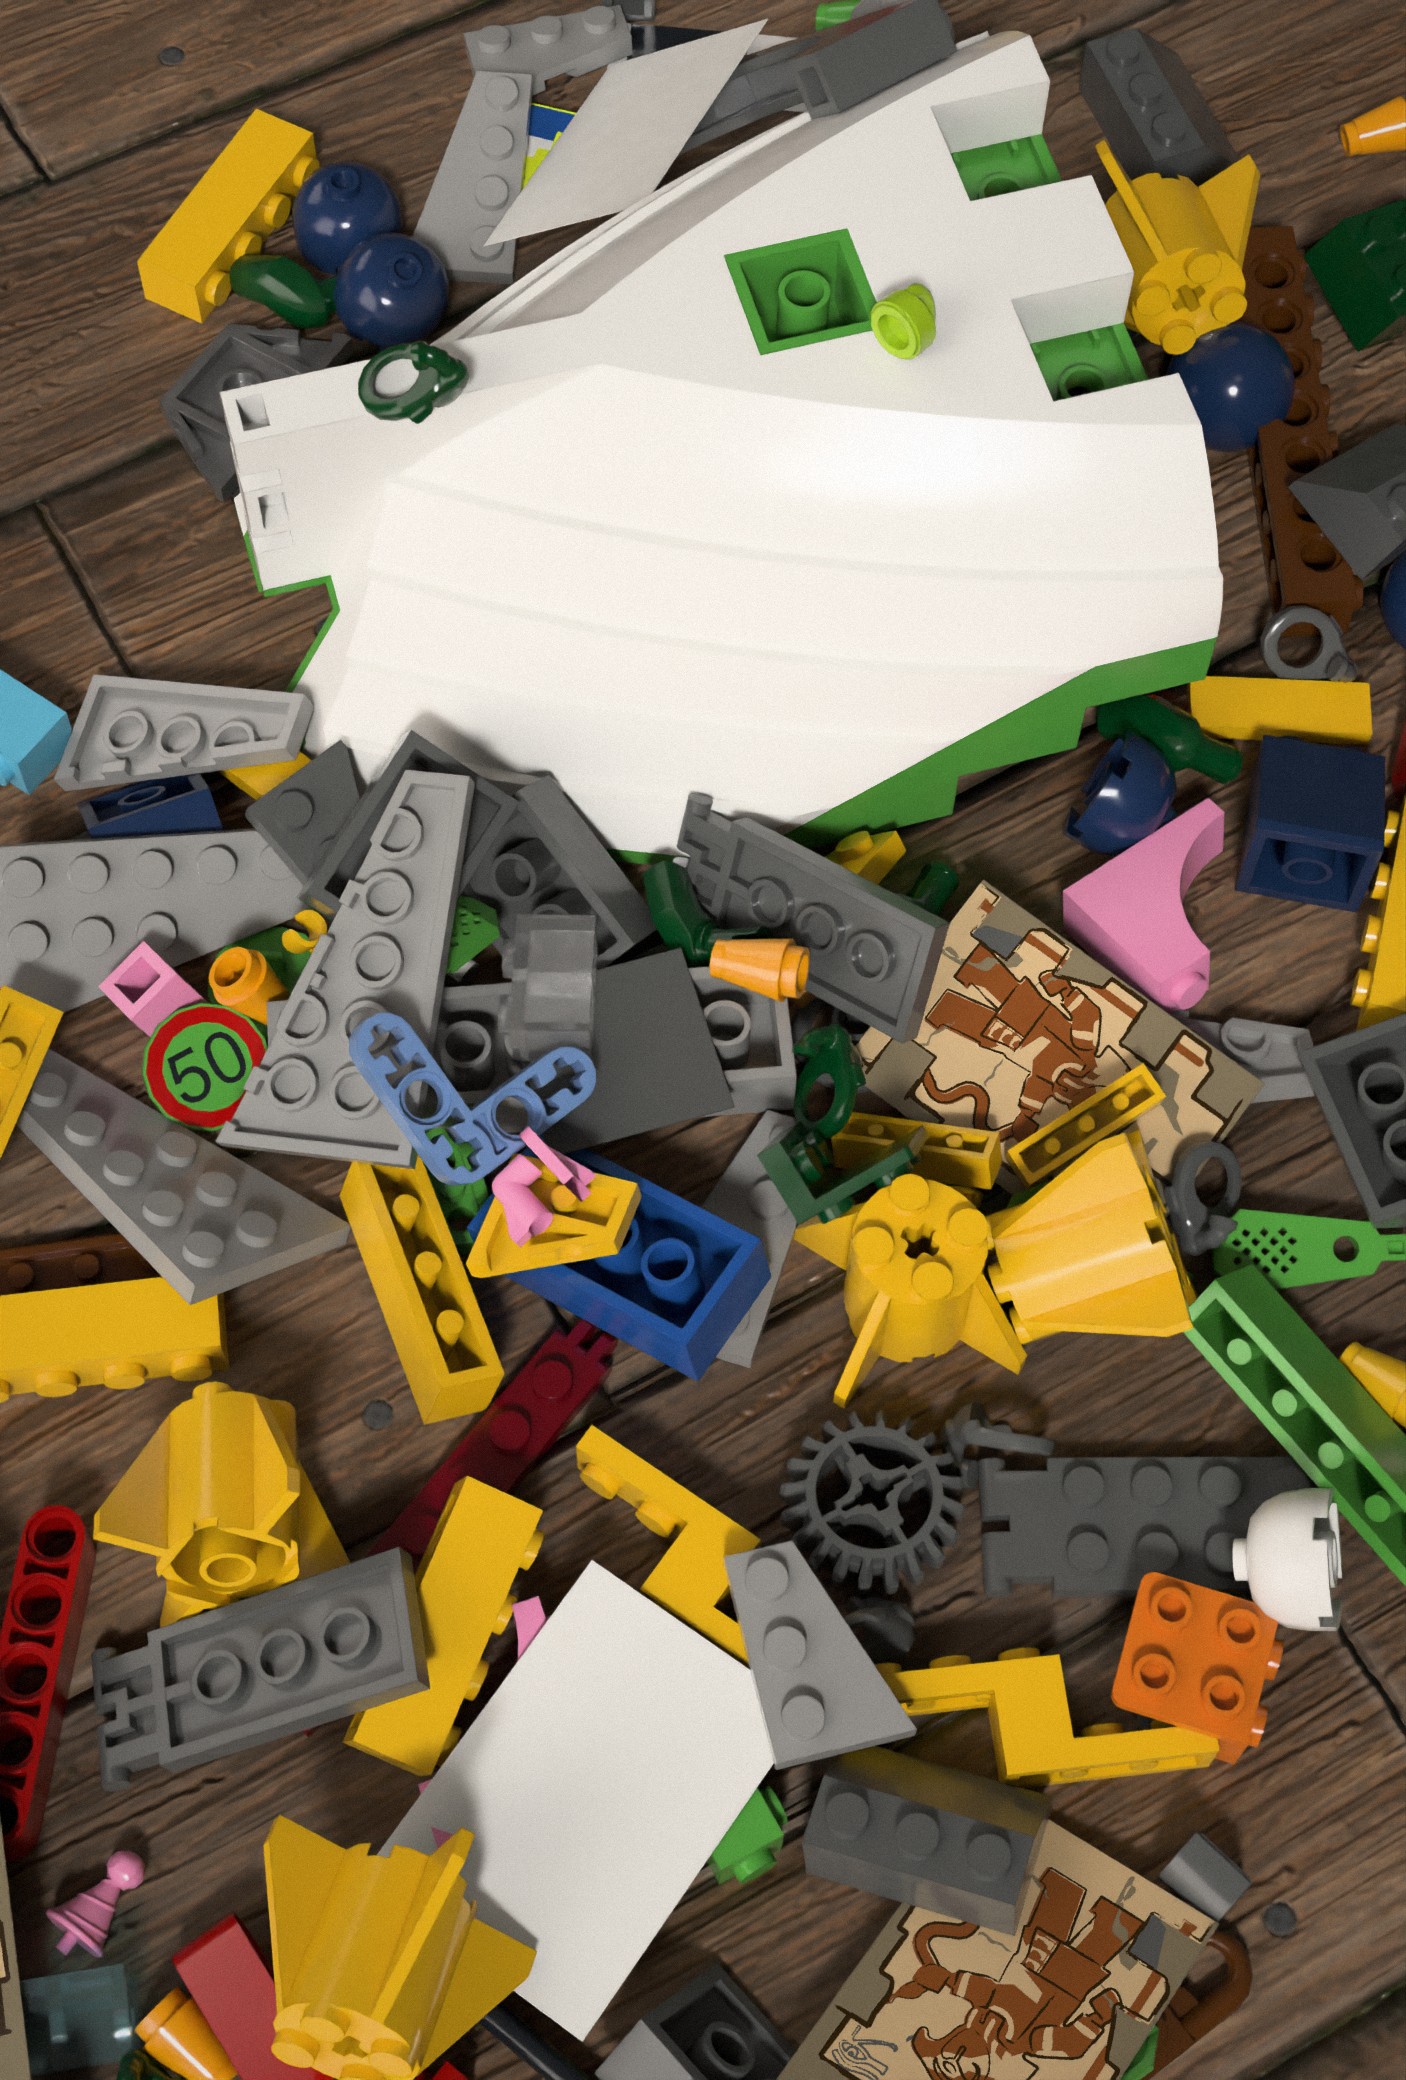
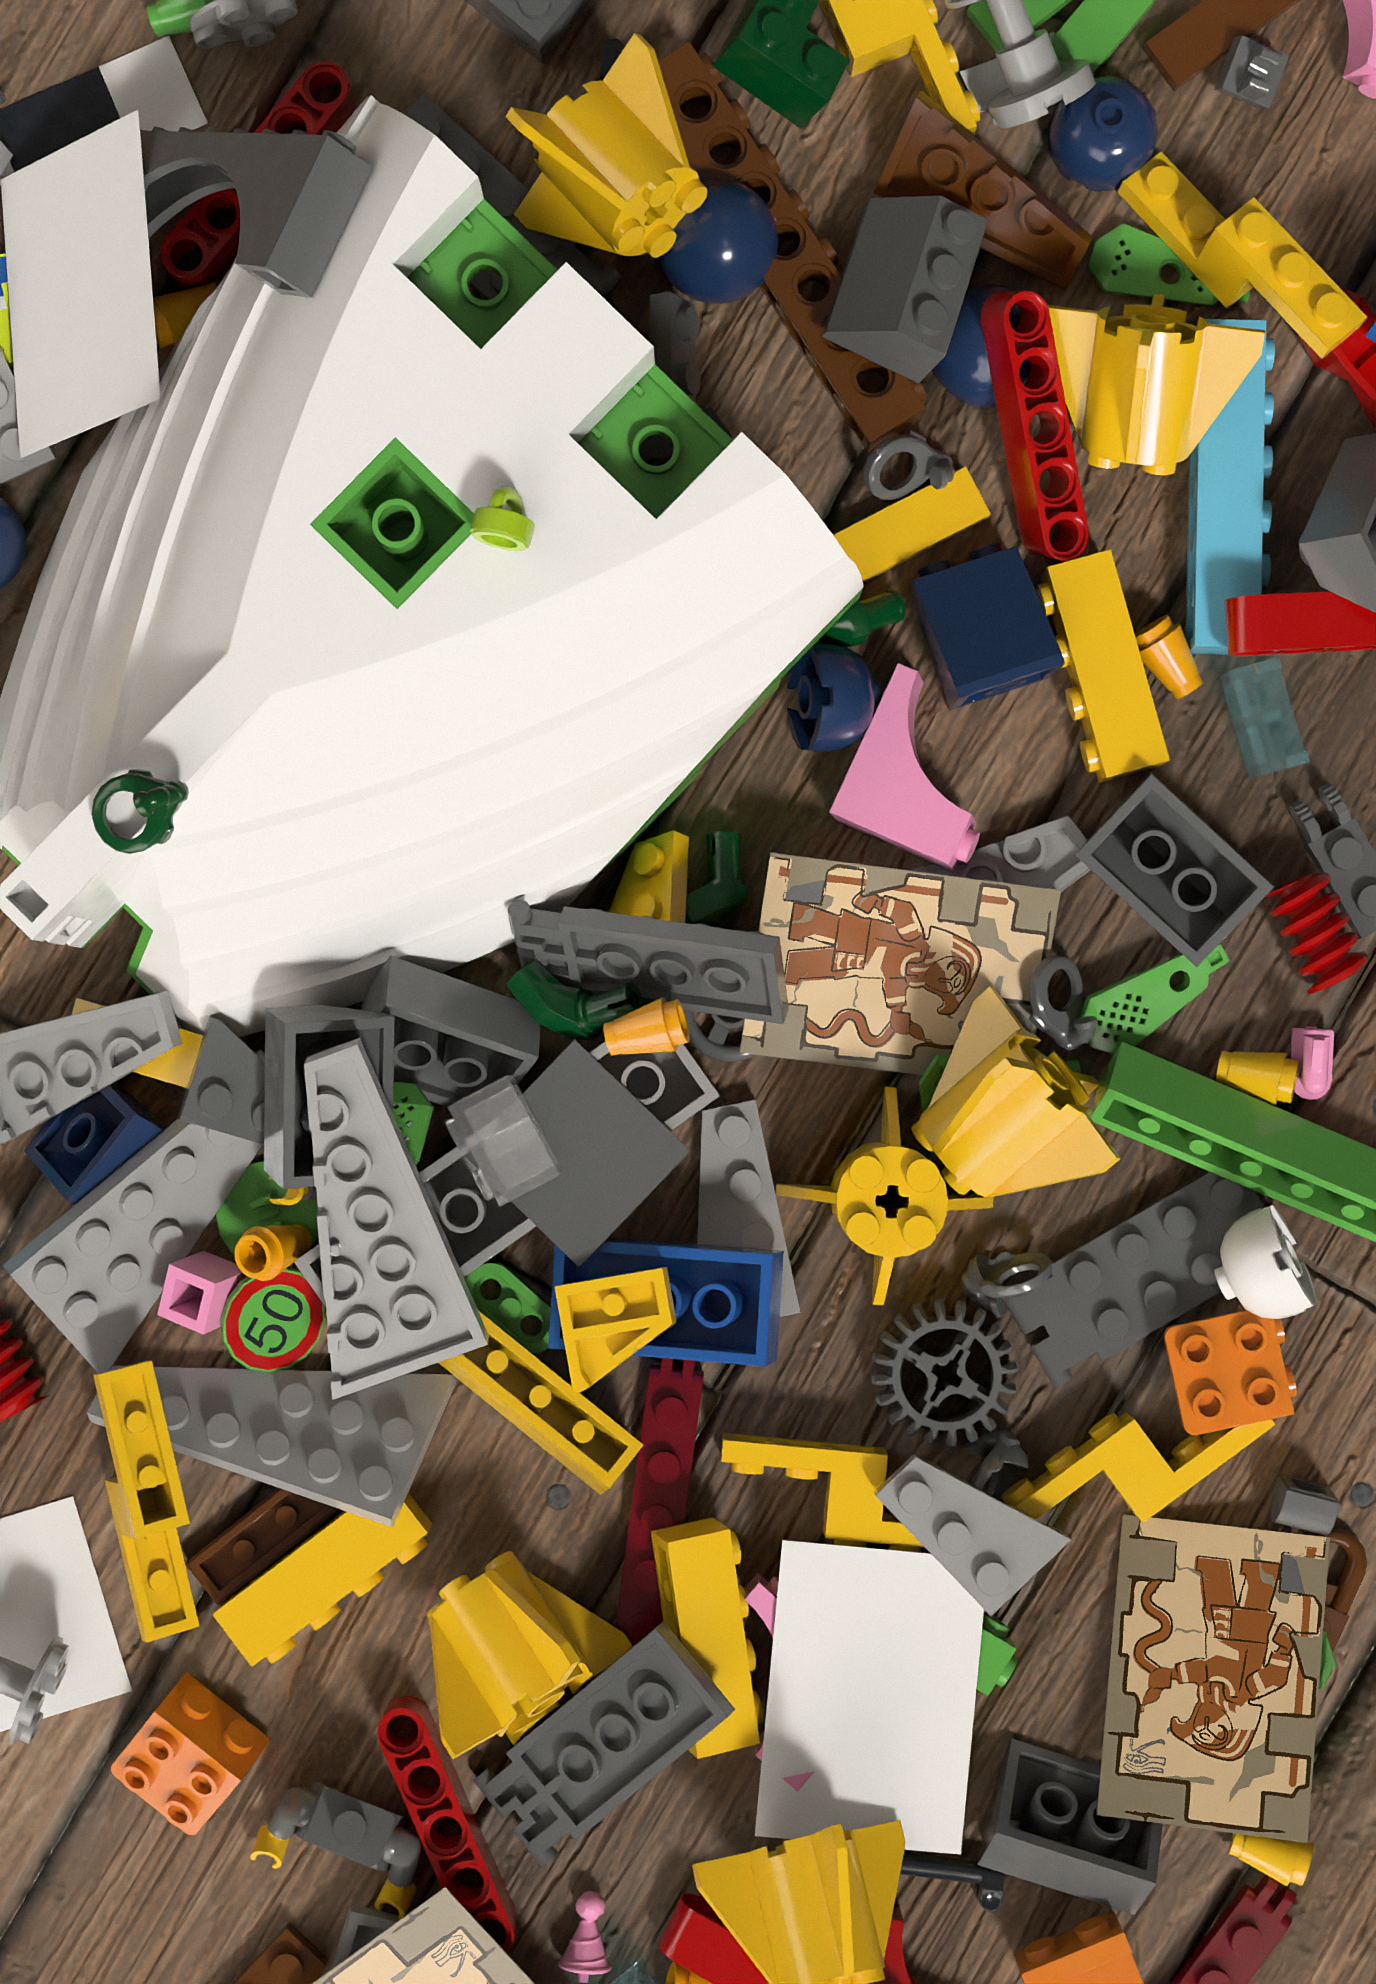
camera: 25 degrees left, 25 degrees up
(473, 1124) = (517, 1287): medium blue beam -> none
(523, 1210) = (584, 1289): bright pink piece -> none
(801, 1171) = (792, 1175): dark green bracket -> none
(843, 1063) = (742, 1058): dark green piece -> none
(927, 1836) = (1112, 1587): dark grey slope -> none
(948, 1156) = (832, 1087): yellow piece -> none
(1085, 1126) = (947, 1004): yellow piece -> none

